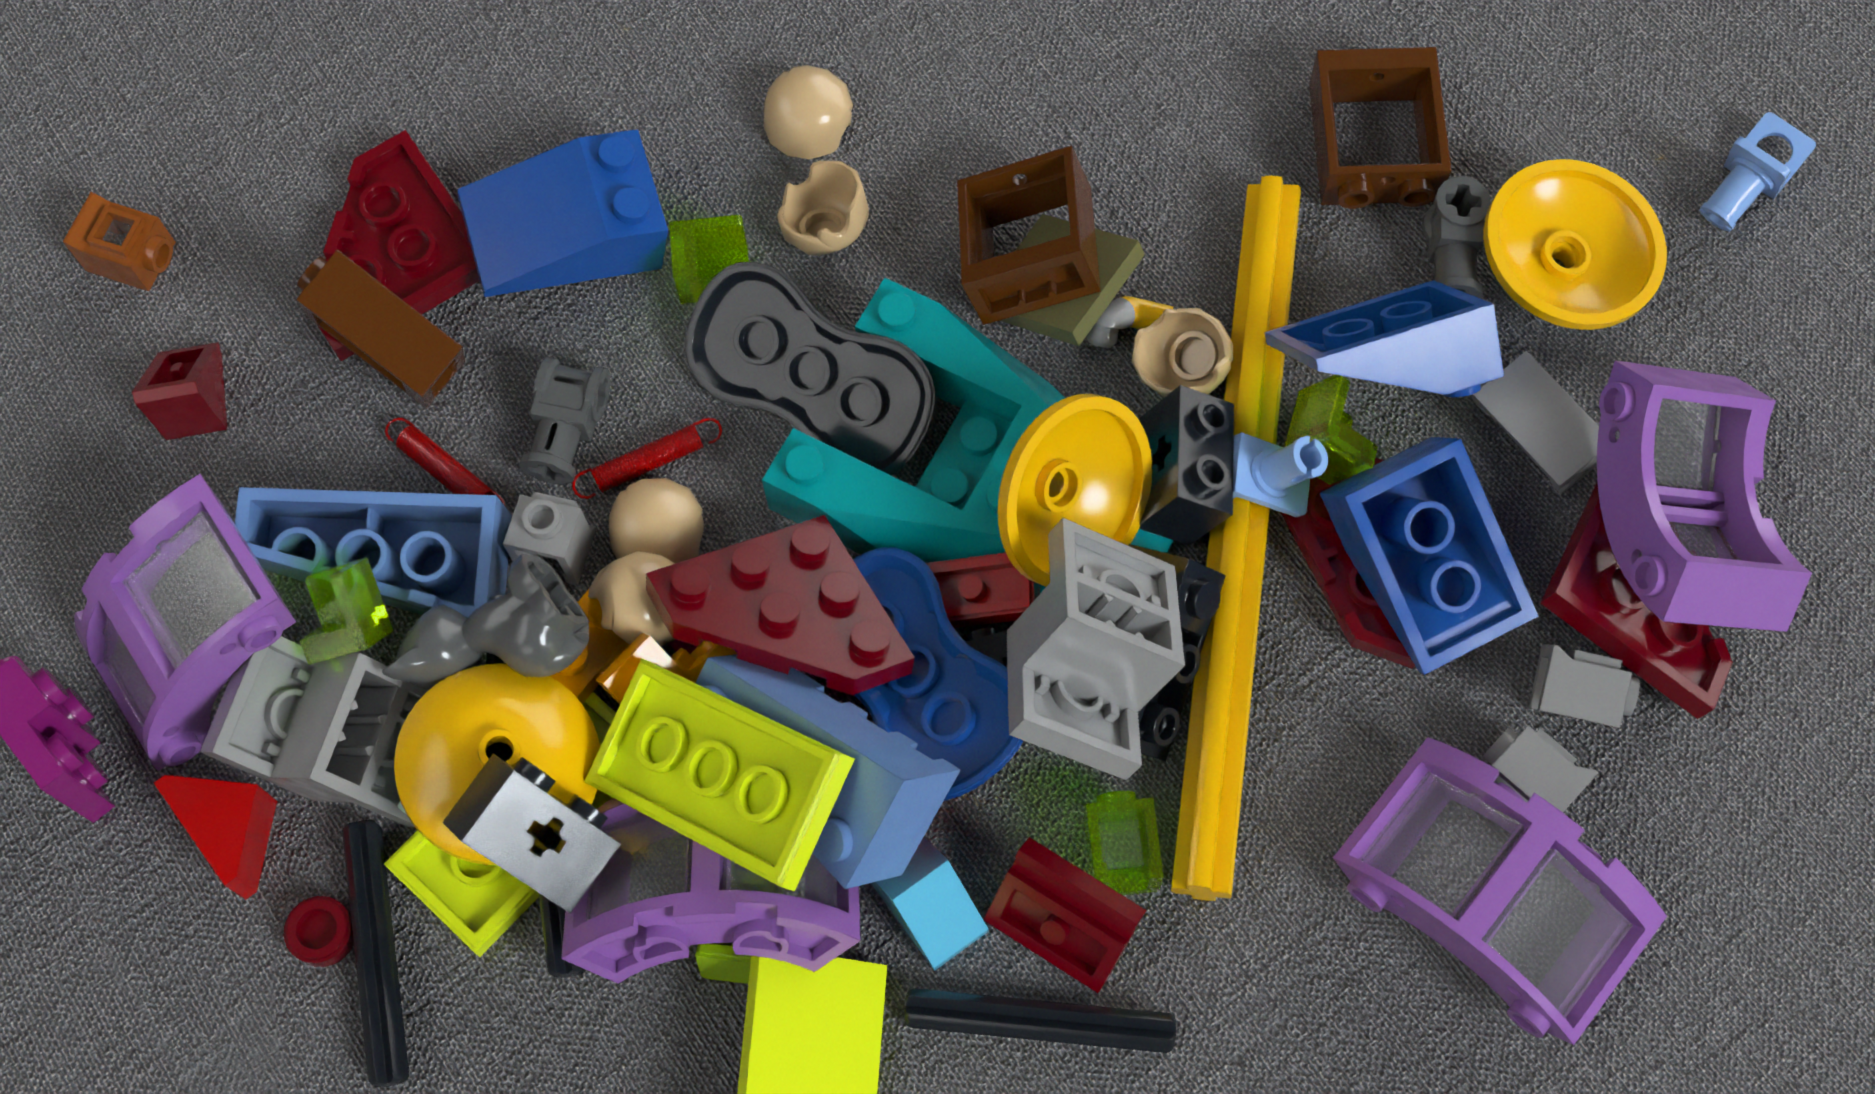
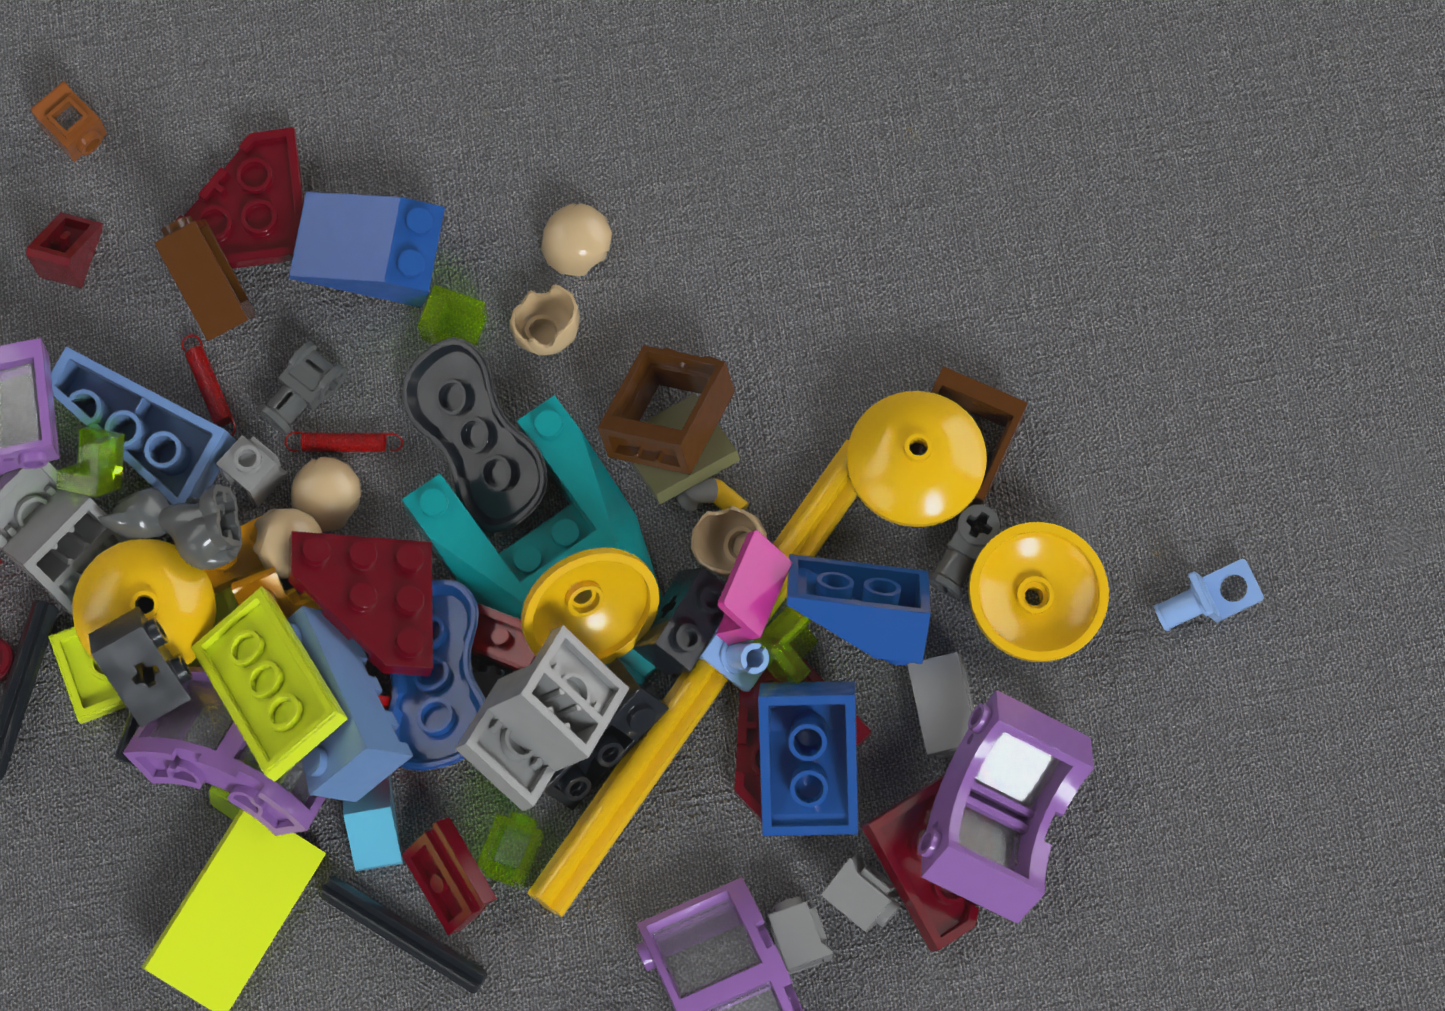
camera: 25 degrees right, 5 degrees up
(1259, 384) = (751, 589): none -> dark pink panel
(1346, 185) = (910, 486): none -> yellow dish

